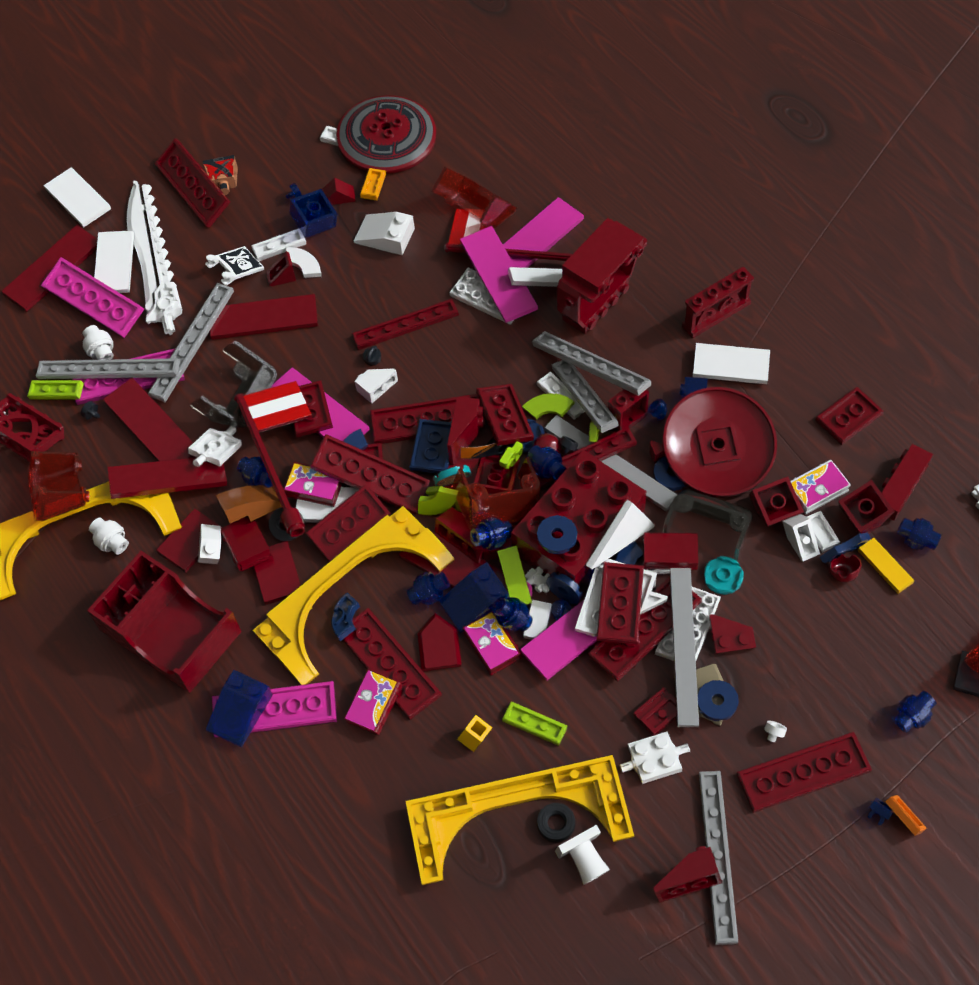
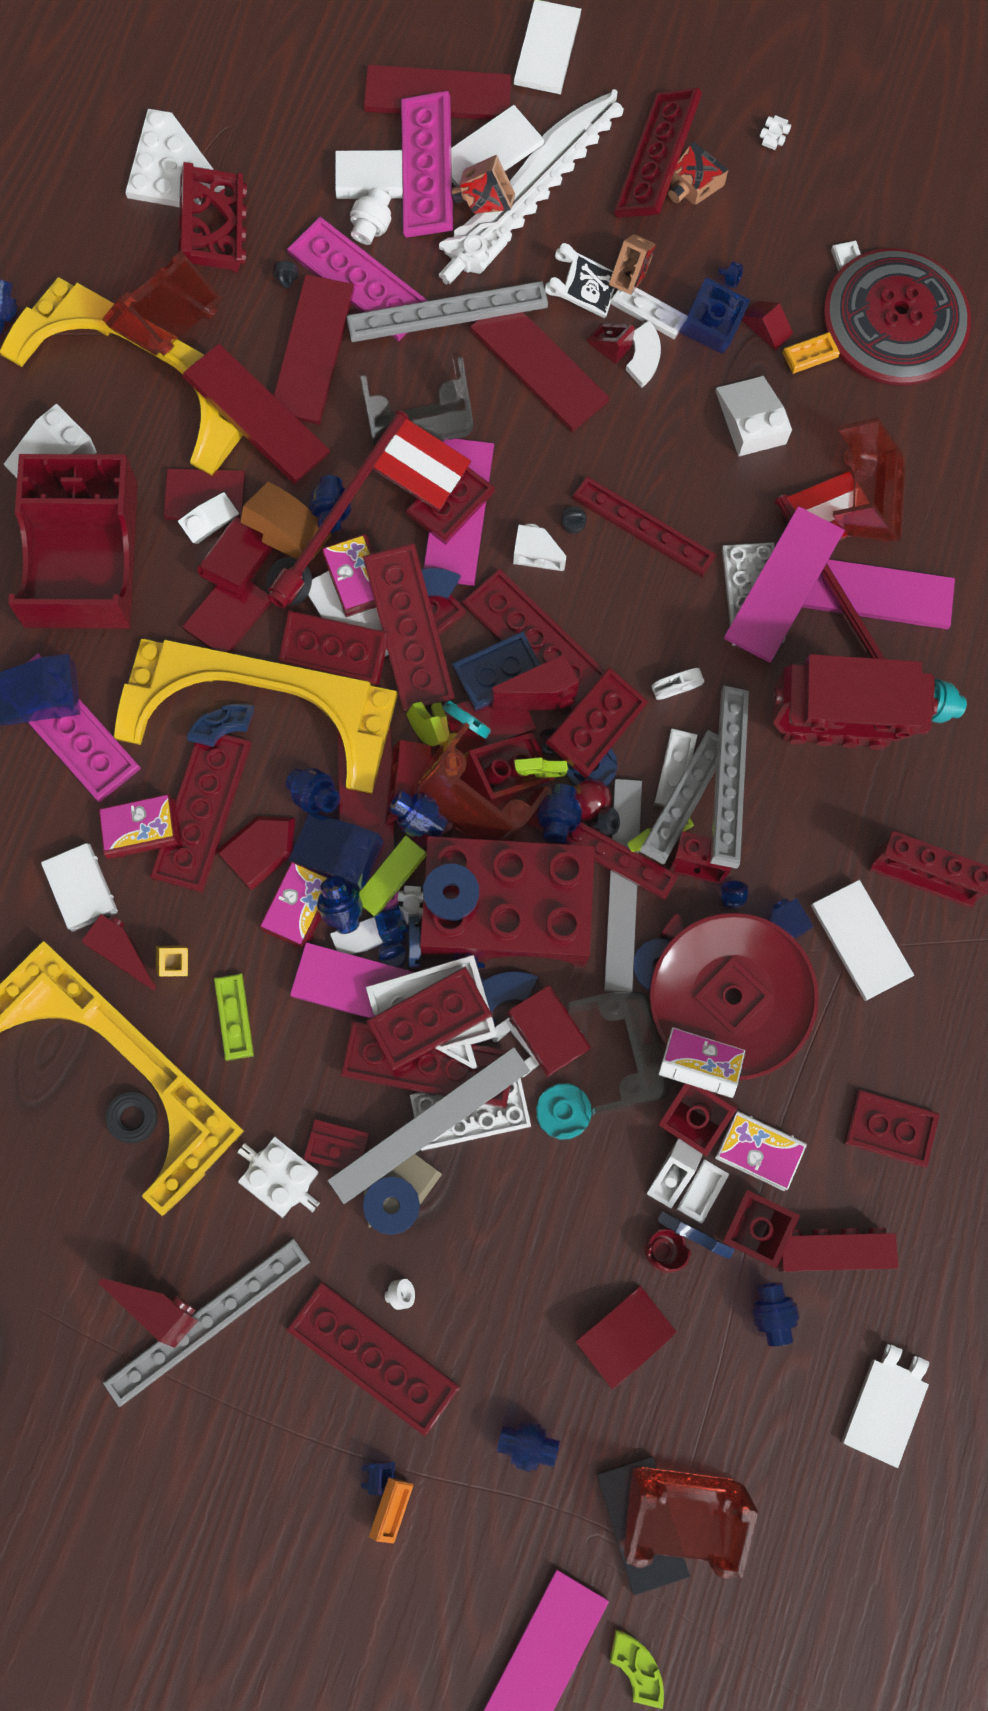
camera: 45 degrees right, 15 degrees up
(55, 389) = (286, 217): lime tile -> none
(67, 331) = (365, 170): none -> white piece
(78, 598) = (52, 434): none -> white slope
(108, 368) = (348, 251): light grey tile -> none
(108, 536) = (145, 407): white piece -> none
(136, 274) = (485, 187): none -> torso
(215, 446) = (329, 436): white plate -> none
(230, 125) = (774, 135): none -> white piece
(247, 230) = (633, 258): none -> nougat torso
(384, 763) = (79, 887): none -> white piece
(440, 763) = (115, 945): none -> dark red slope
(478, 452) = (524, 727): sticker -> none
(513, 362) = (677, 683): none -> white piece
(534, 276) = (810, 627): white tile -> none
(545, 594) = (391, 925): none -> clear blue tile
(548, 404) = (649, 762): lime tile -> none
(584, 855) = (106, 1174): white plant -> none
(625, 529) = (525, 961): white tile -> none
(730, 635) = (487, 1169): dark red wing -> none
(748, 477) = (702, 1062): none -> piece
(882, 623) = (625, 1337): none -> dark red slope
(886, 565) = (708, 1297): yellow tile -> none

